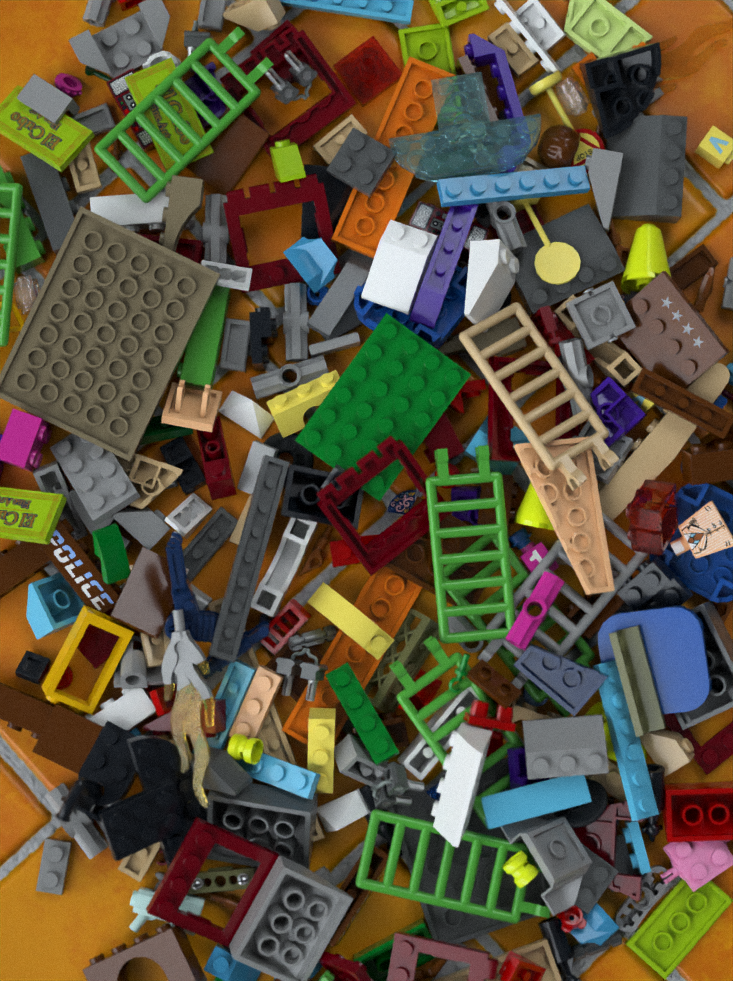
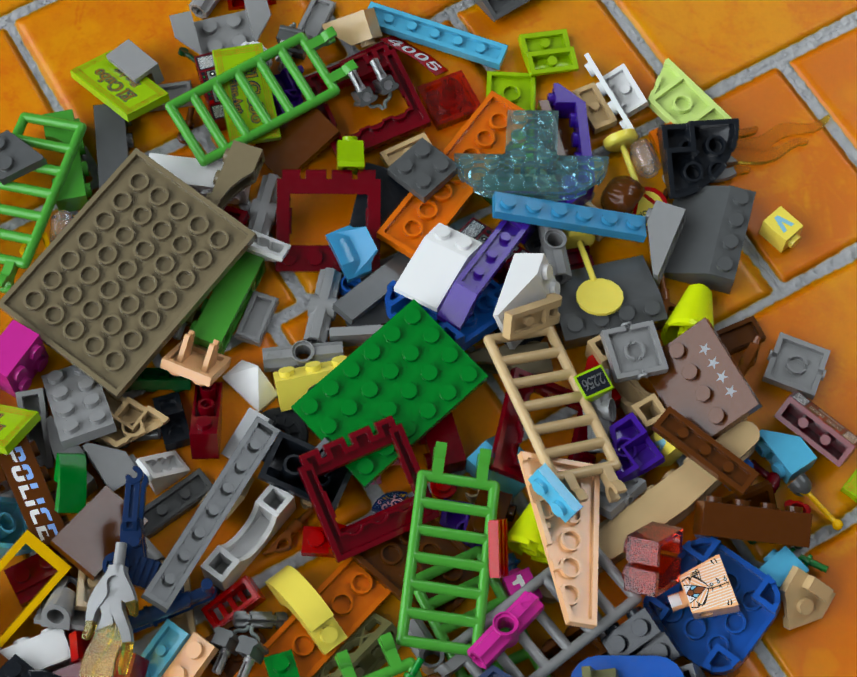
camera: 10 degrees right, 20 degrees down
(68, 84) = (159, 56): dark pink animal -> none
(85, 171) = (152, 131): tan plate -> none
(262, 331) = (284, 309): black plate -> none
(323, 25) = (422, 57): none -> red sticker
(472, 390) = (484, 403): red slope -> none
(500, 303) = (532, 317): none -> tan plate
(512, 535) = (498, 548): none -> red tile
(546, 324) = (577, 350): dark red plate -> none
(549, 475) = (555, 493): none -> medium azure plate
(569, 358) = (594, 383): none -> slope

